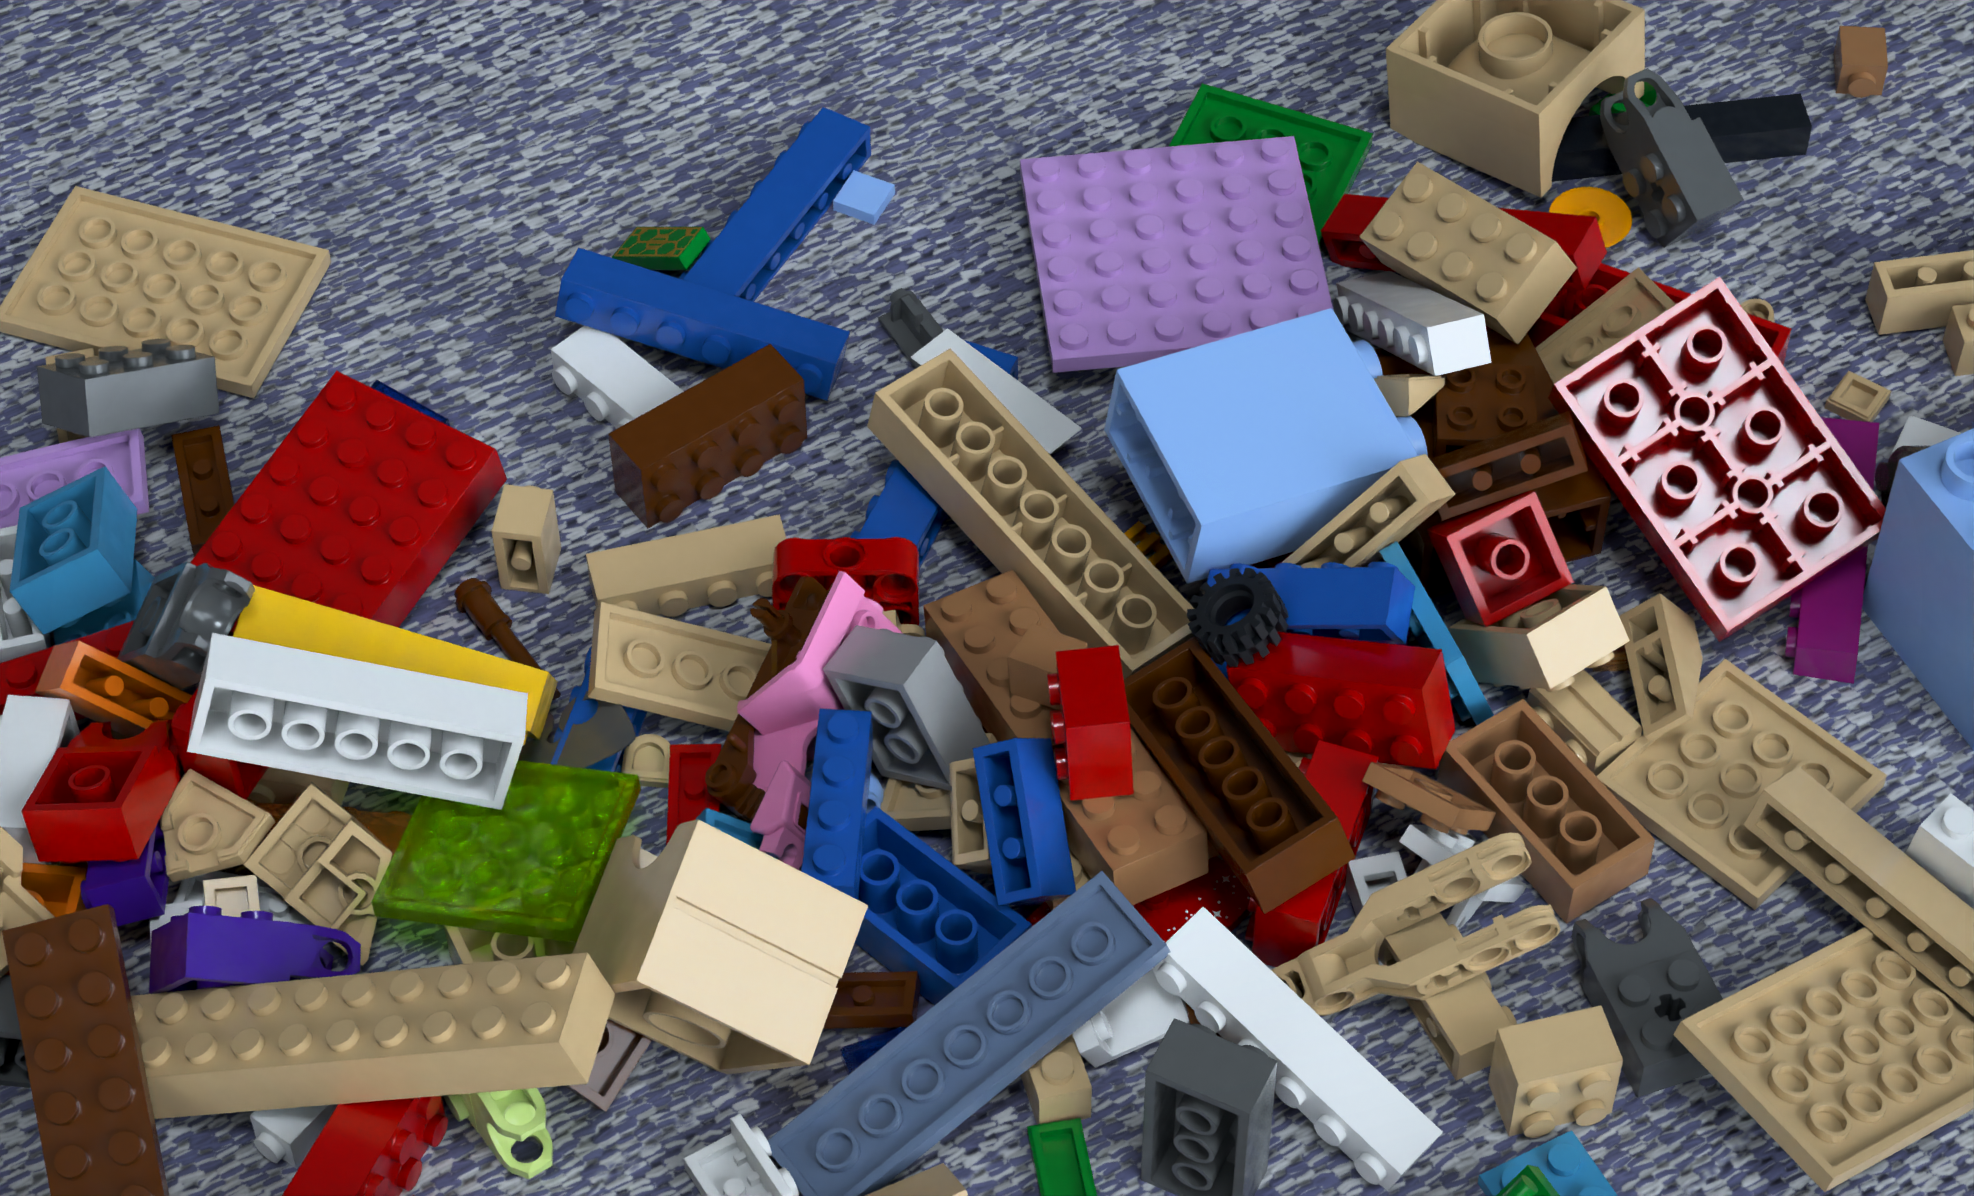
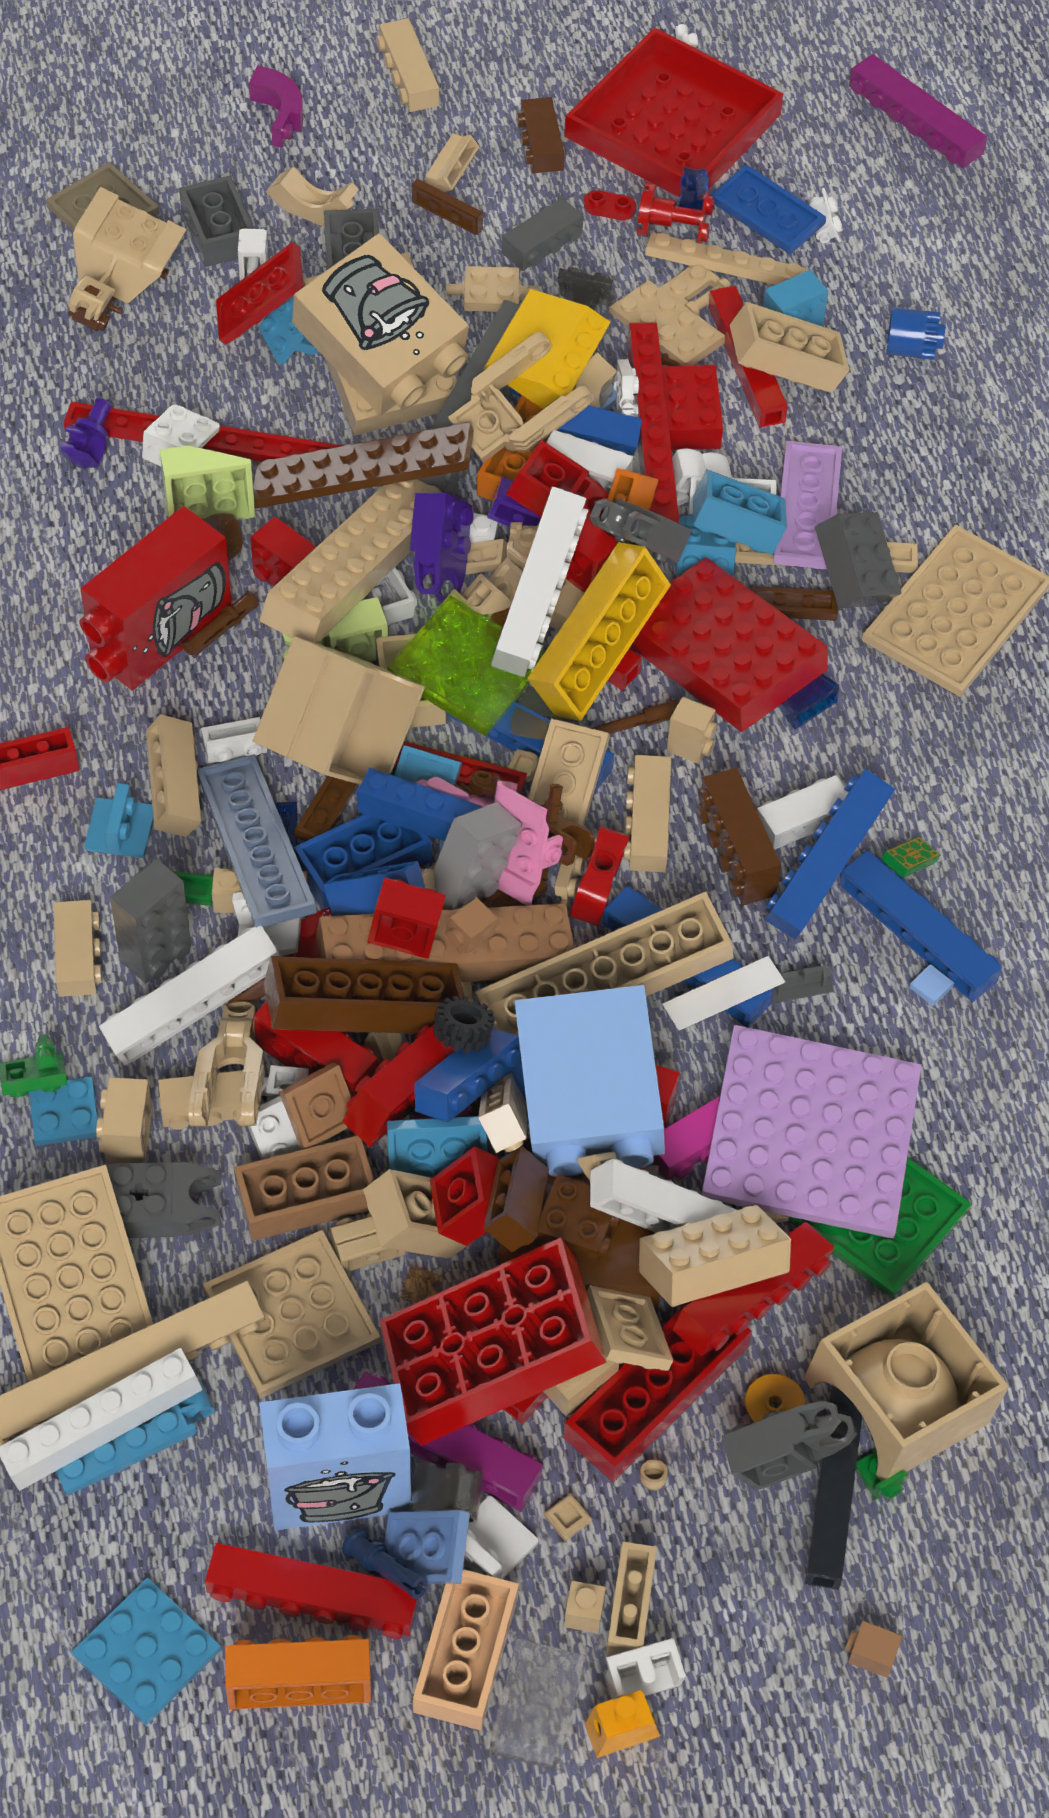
camera: 105 degrees right, 5 degrees up
(1662, 663) = (376, 1288): tan slope -> none

